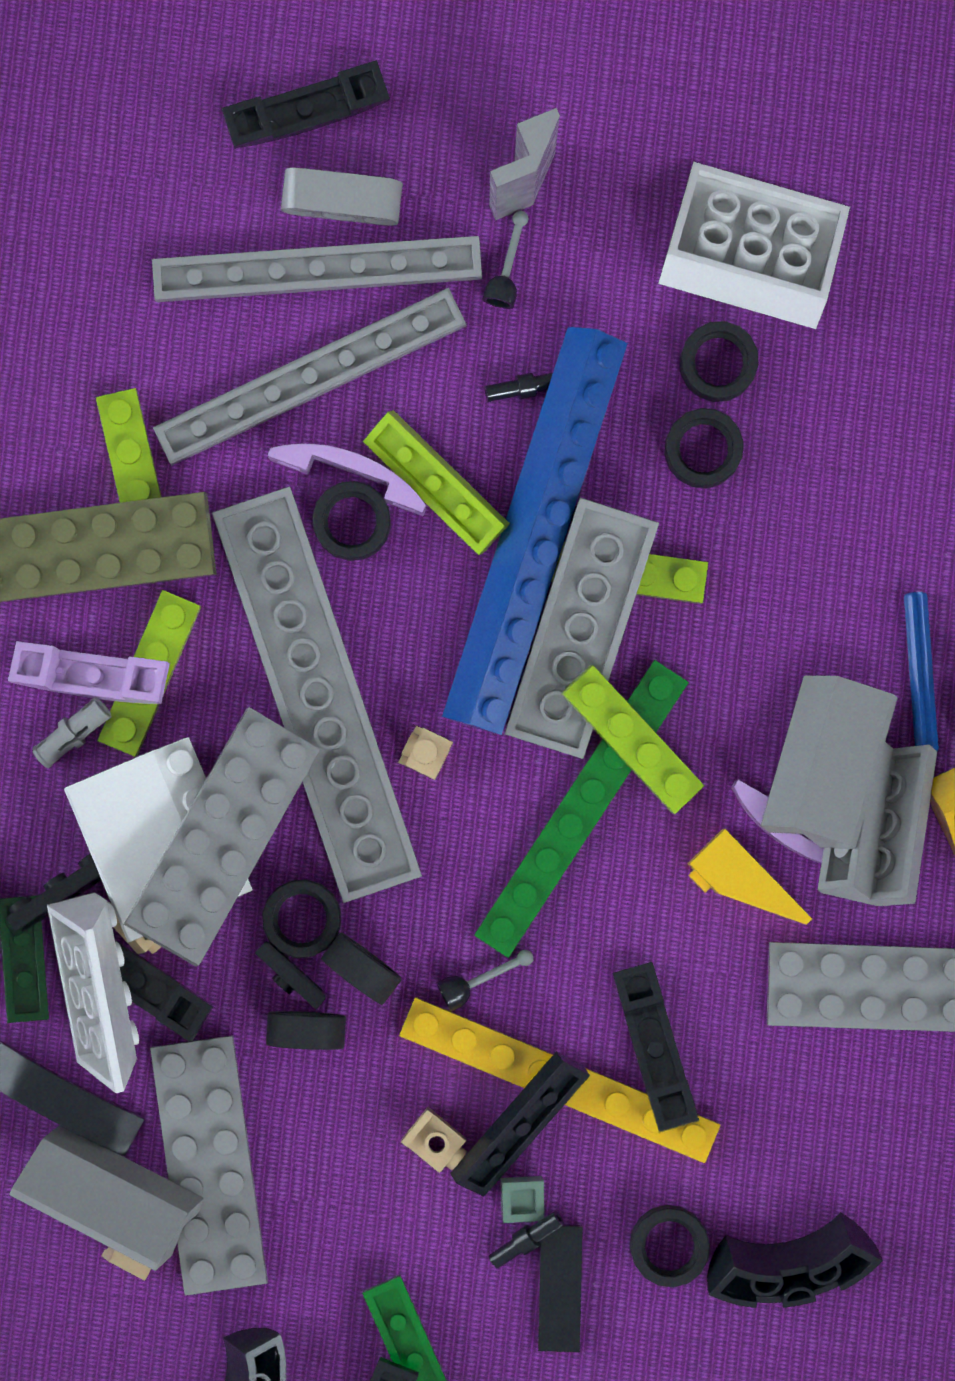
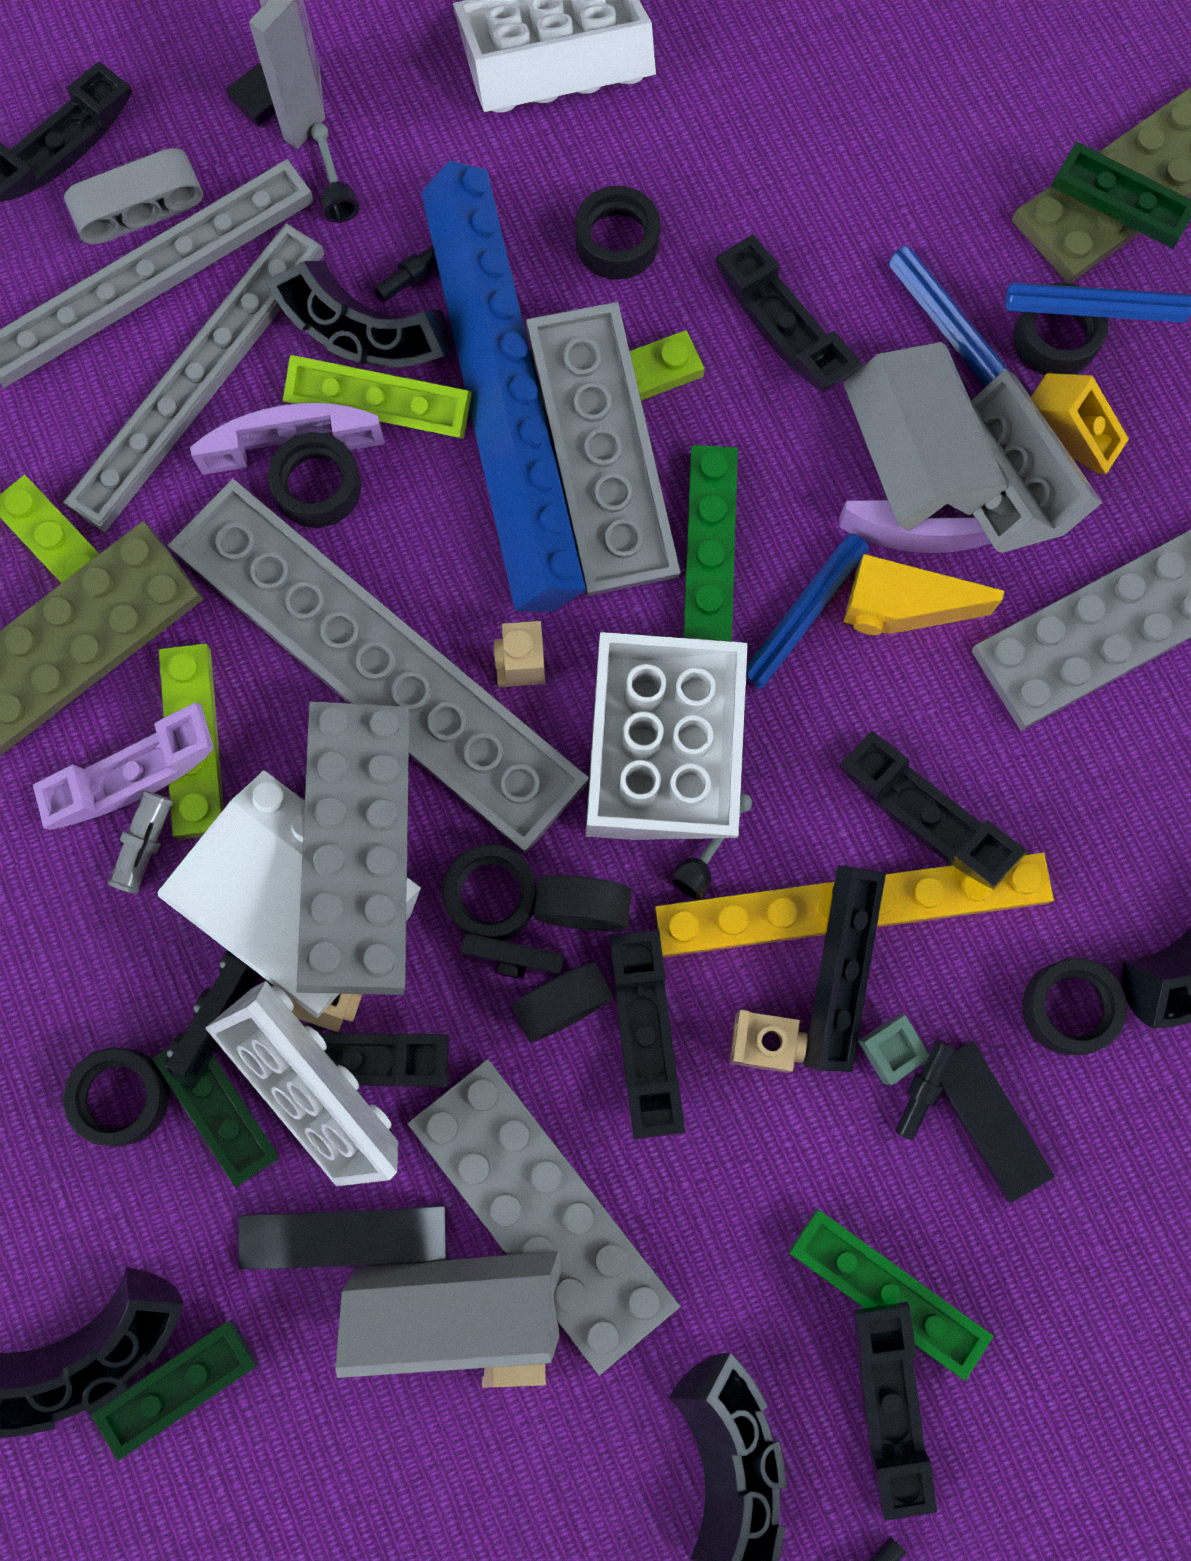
camera: 30 degrees left, 10 degrees down
(353, 1085) = (646, 1035): none -> black slope
(454, 415) = (352, 330): none -> black brick
(487, 154) = (252, 95): none -> black tile
(494, 883) = (667, 738): none -> white slope
(632, 739) = (718, 523): lime plate -> none
(661, 840) = (805, 610): none -> blue axle
(741, 339) = (583, 120): black tyre -> none
(791, 597) = (781, 317): none -> black slope

